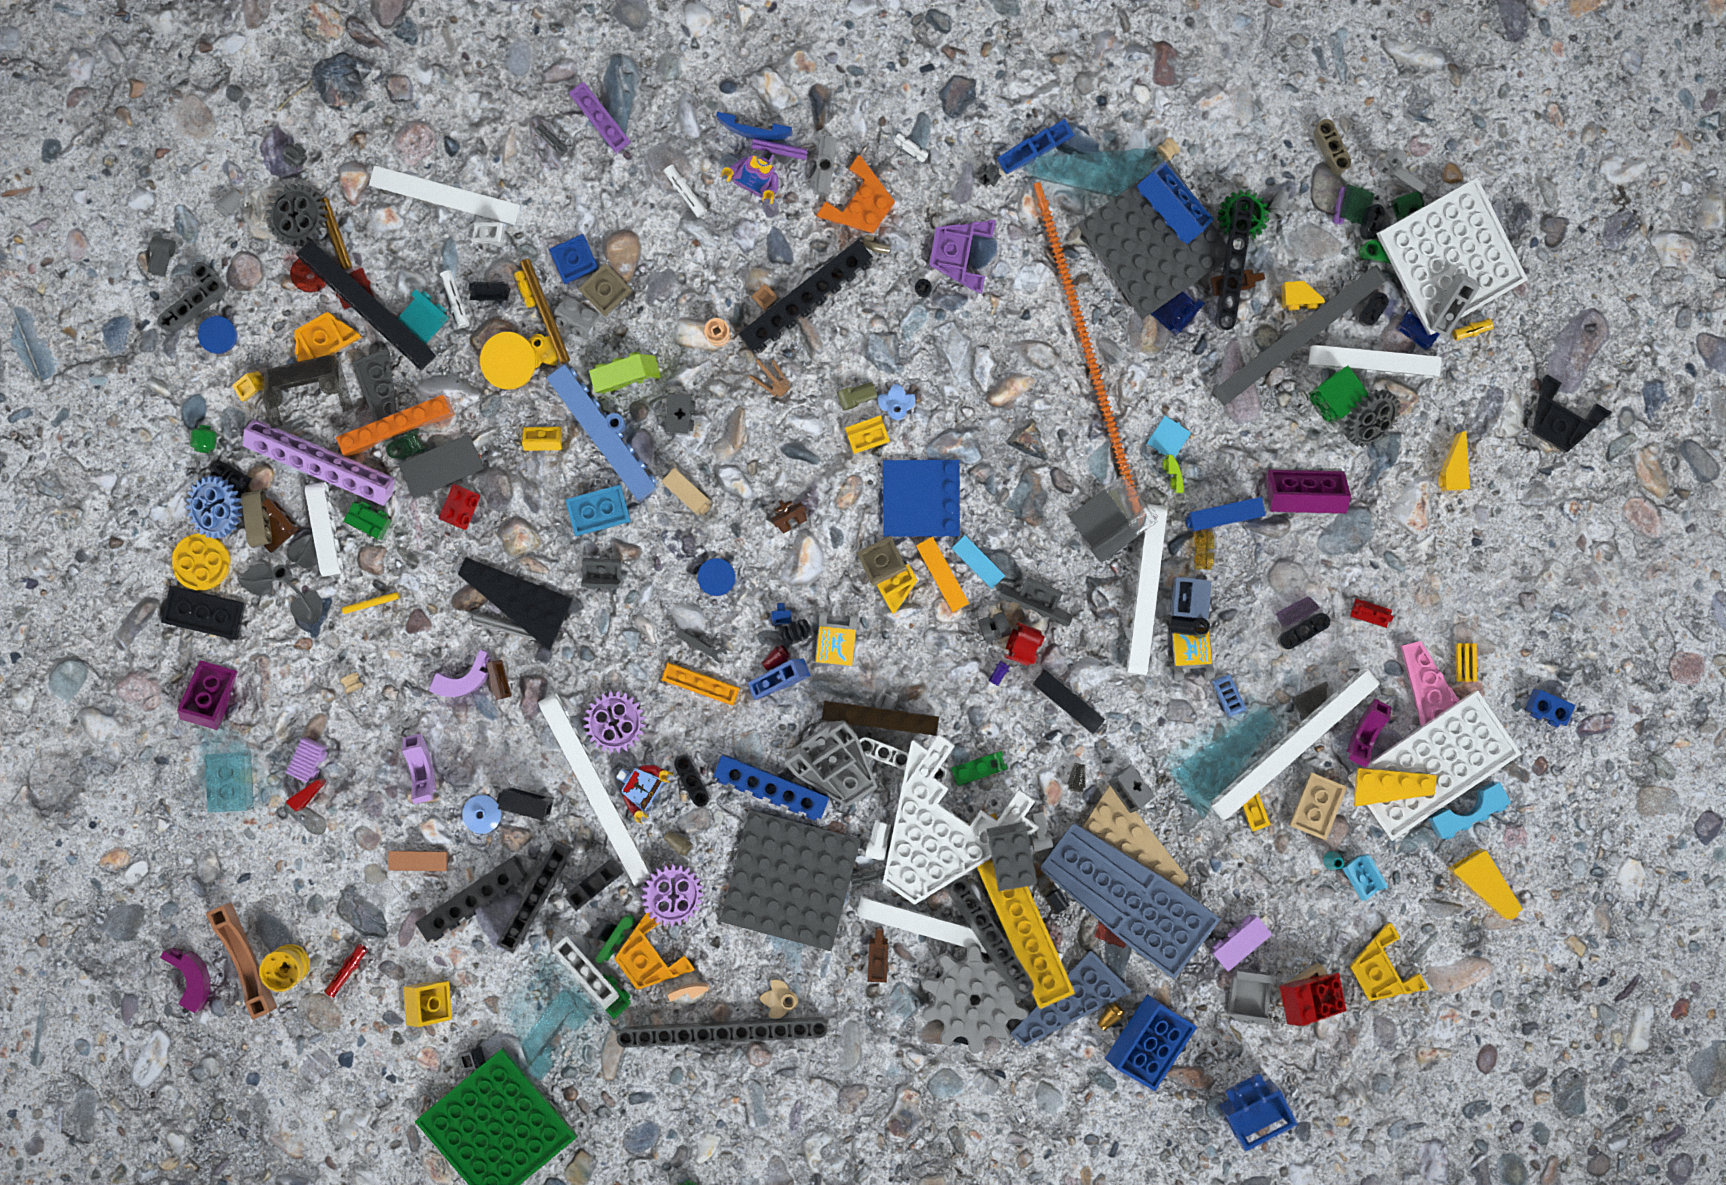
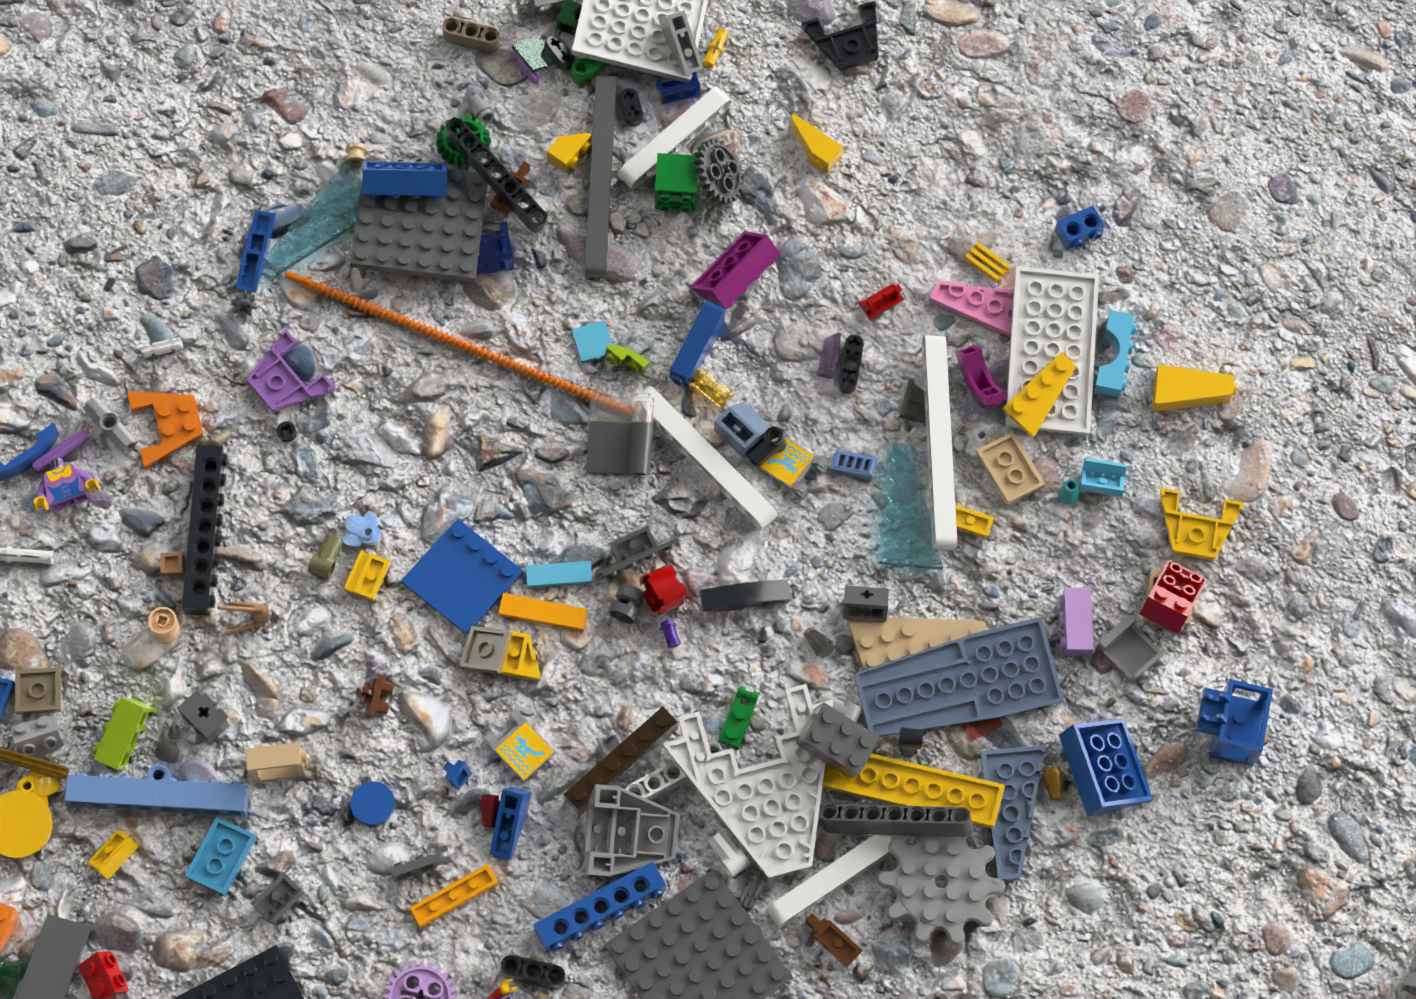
camera: 55 degrees left, 20 degrees down
(795, 632) = (482, 772): black gear -> none

